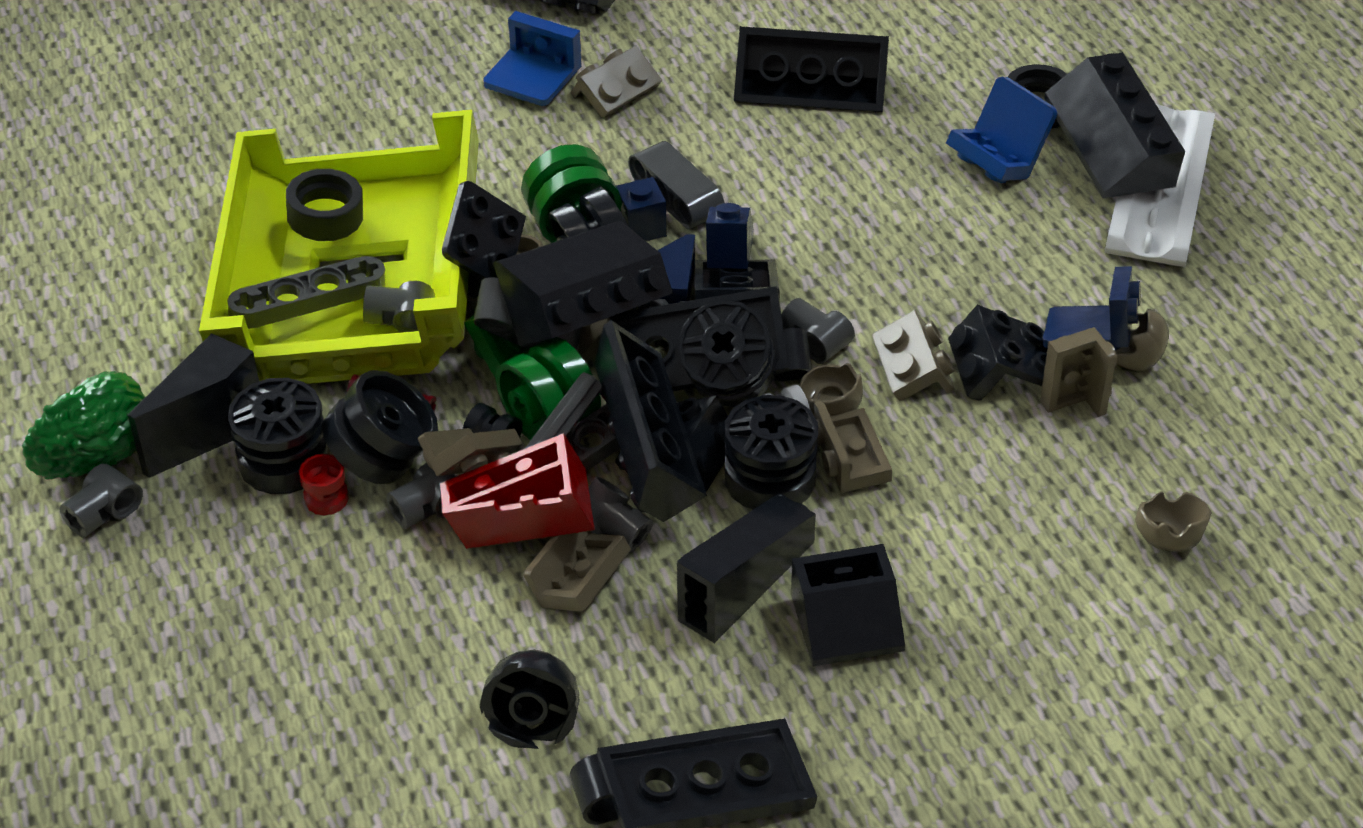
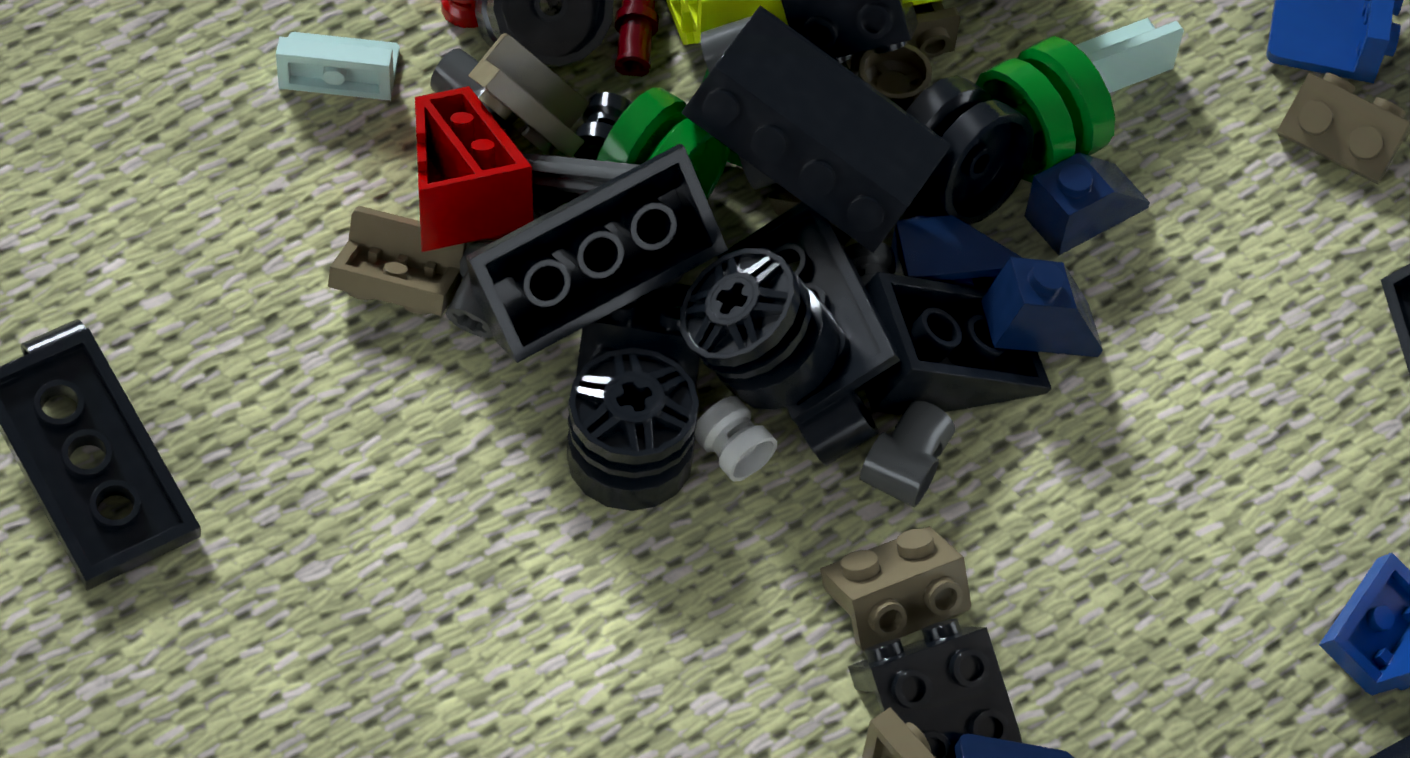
camera: 70 degrees right, 10 degrees up
(359, 578) = (337, 65): none -> light aqua panel
(513, 161) = (1133, 52): none -> light aqua panel
(525, 692) = (184, 250): black cylinder -> none
(683, 186) = (1148, 237): dark grey beam -> none
(740, 564) = (436, 433): black slope -> none
(834, 385) = (785, 487): dark tan hair -> none
(847, 604) = (393, 563): black slope -> none
(851, 449) = (688, 526): dark tan bracket -> none

